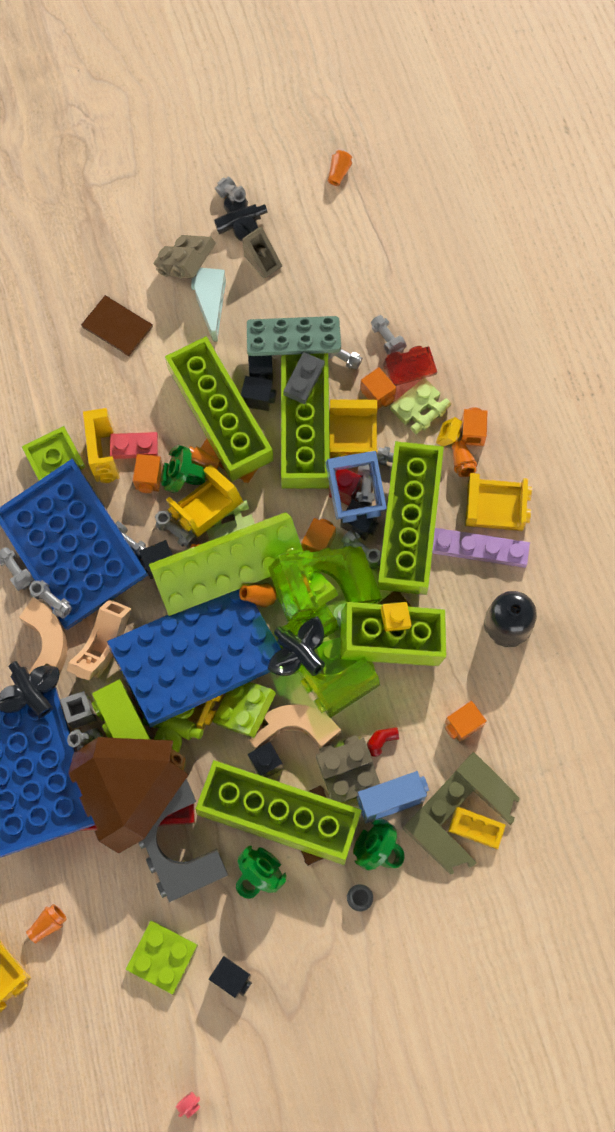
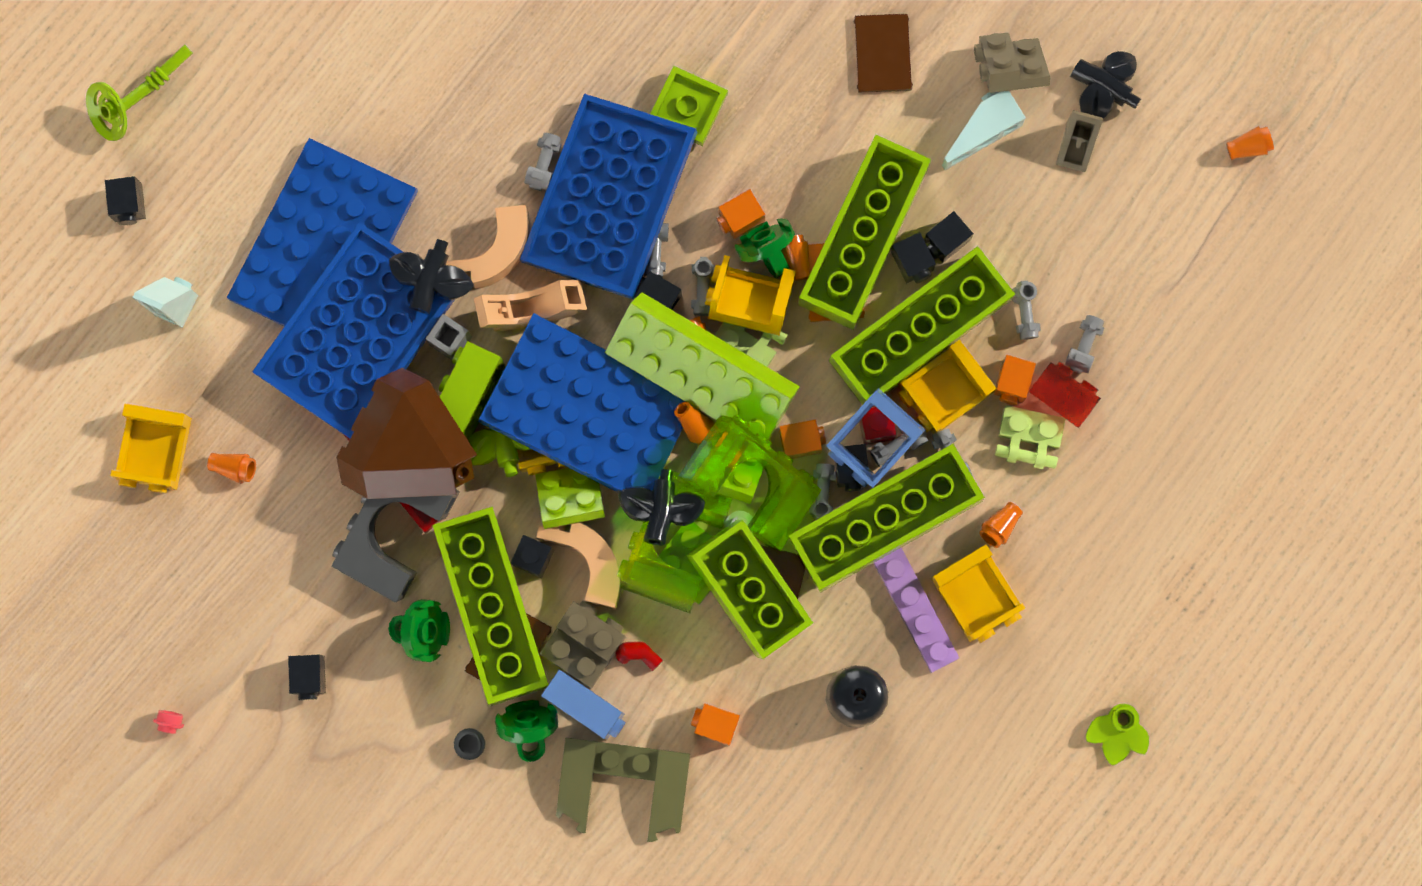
camera: 55 degrees right, 10 degrees up
(41, 590) = (539, 208): light grey bar -> none
(79, 739) = (417, 362): light grey bar -> none
(97, 426) = (744, 123): yellow panel -> none
(130, 444) = (762, 176): coral plate -> none
(162, 957) = (280, 597): lime plate -> none
(228, 188) = (1131, 42): light grey bar -> none
(293, 336) = (1000, 249): sand green bracket -> none
(304, 378) = (958, 296): dark grey plate -> none
(395, 616) = (764, 579): yellow plate -> none
(449, 432) = (1020, 489): yellow plate -> none
(474, 426) = (1047, 510): orange brick -> none
(476, 828) = (618, 810): yellow plate -> none

